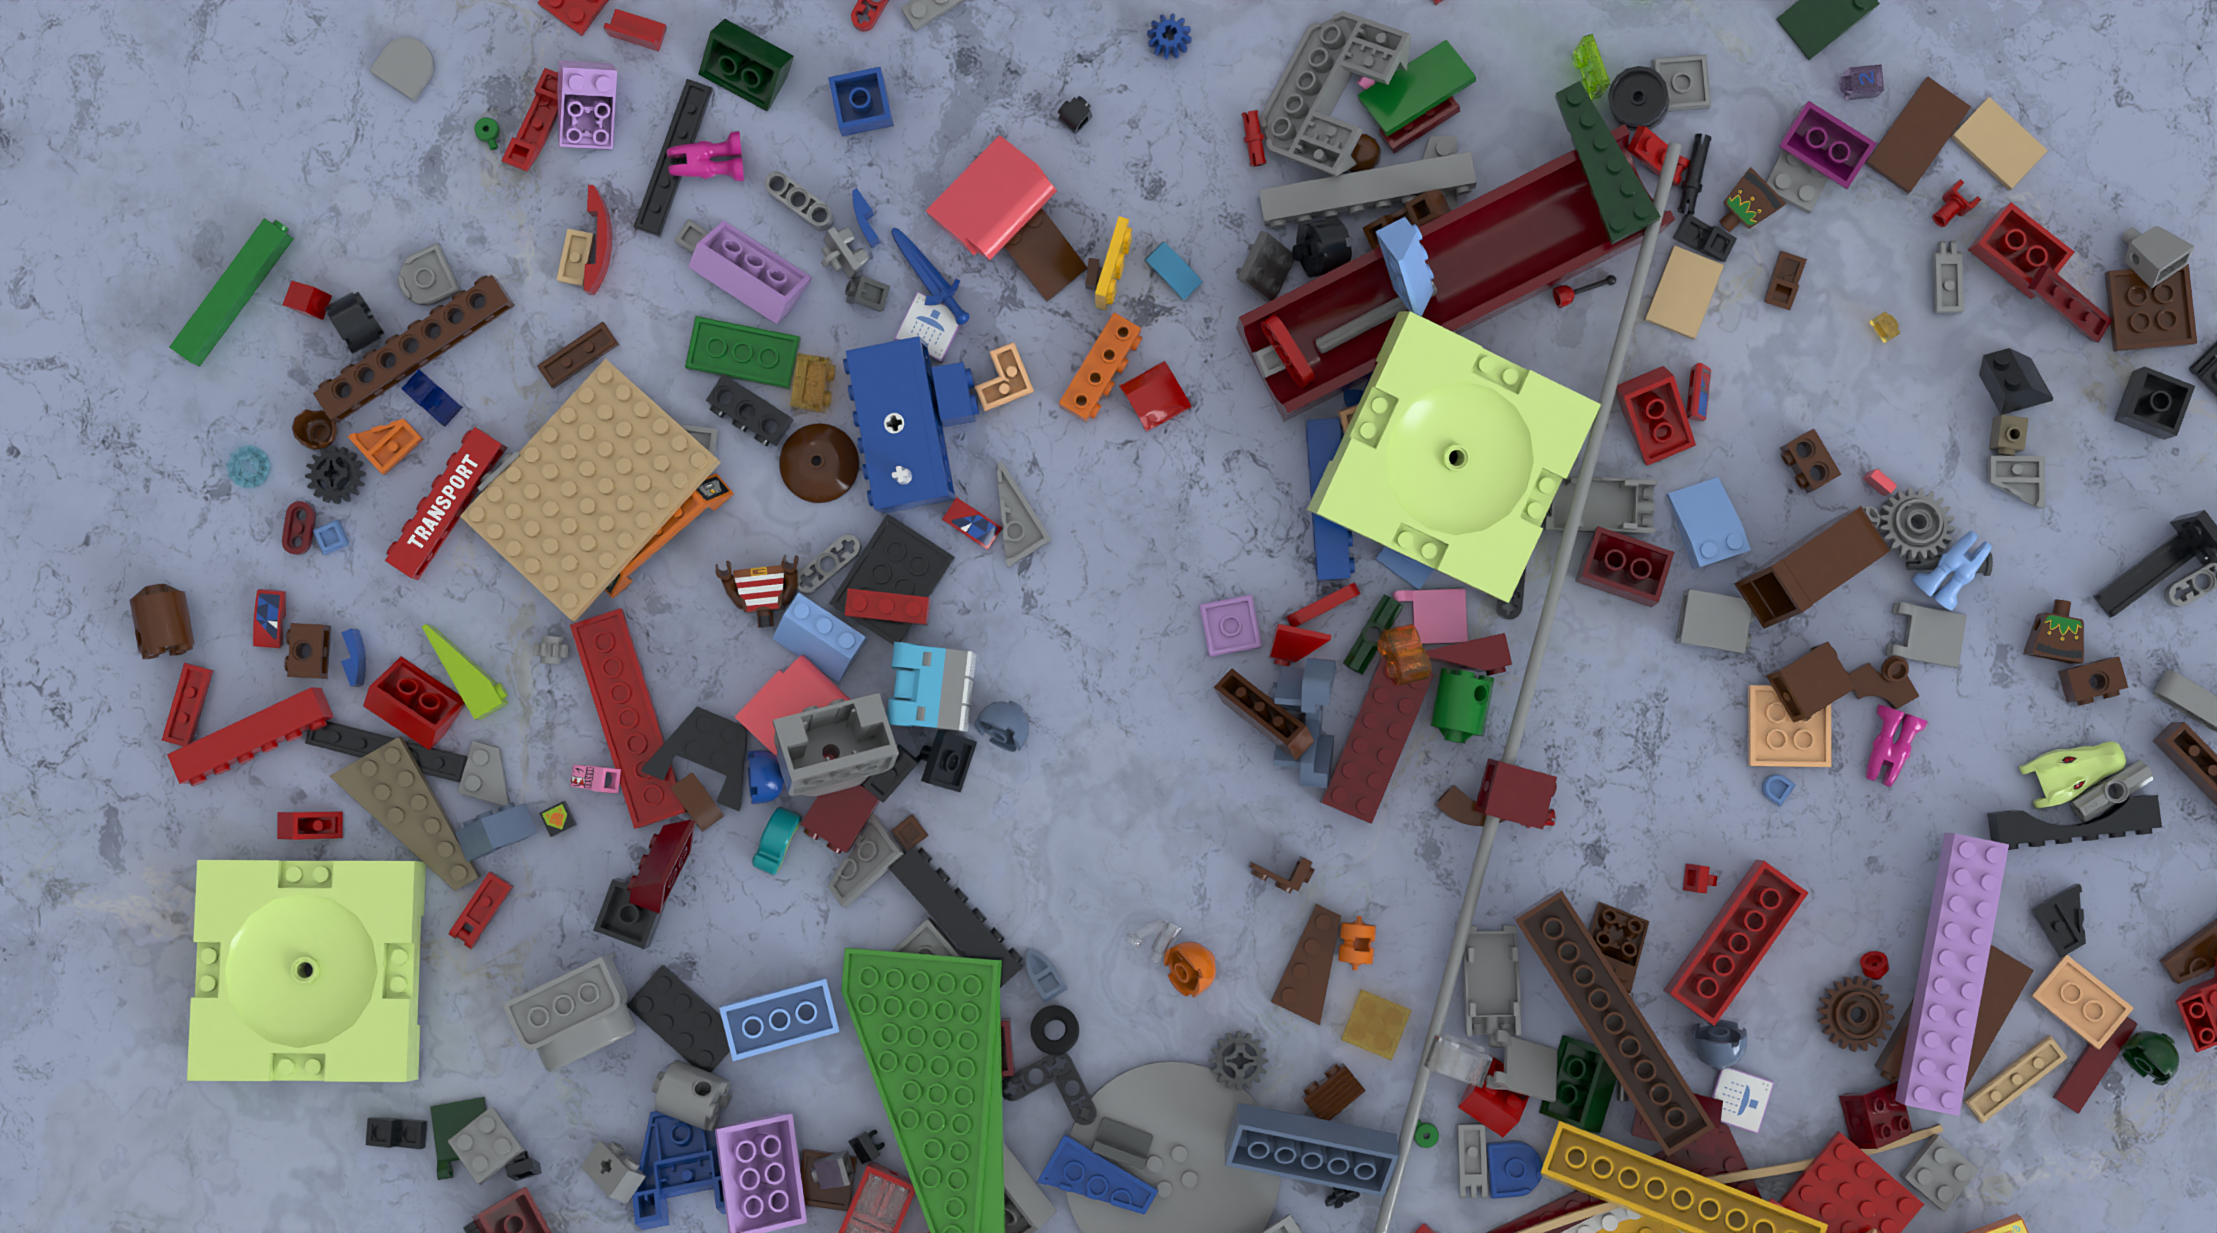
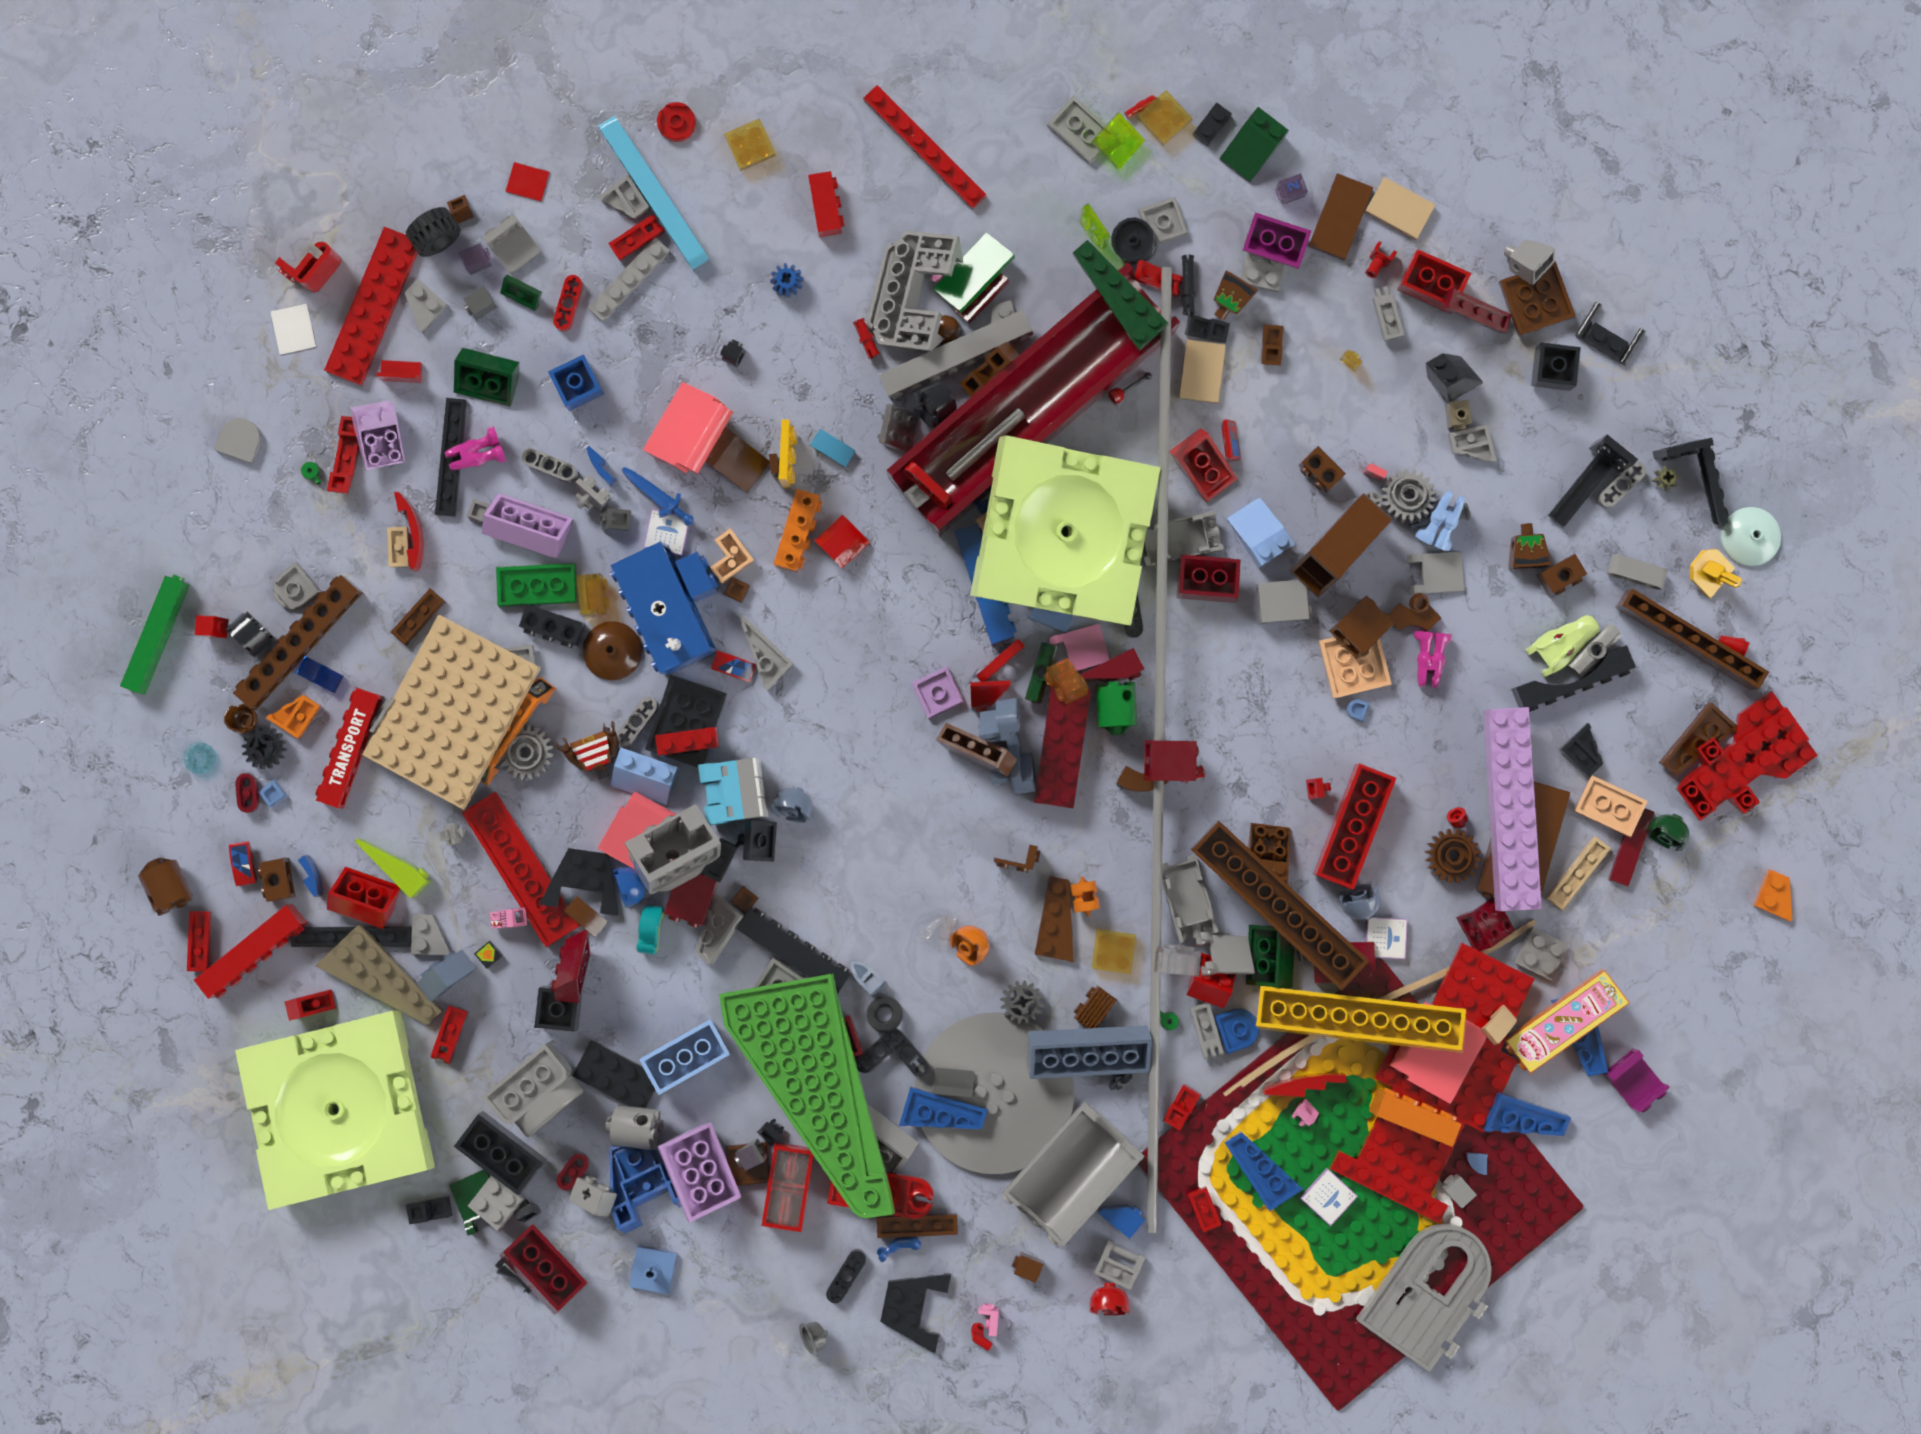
camera: 20 degrees left, 0 degrees up
(507, 1082) = (500, 1152): none -> black brick
(596, 1130) = (573, 1170): none -> dark red plate
(688, 577) = (537, 759): none -> light grey gear
(1001, 424) = (736, 590): none -> reddish brown tile
(1407, 264) = (997, 402): light blue slope -> none

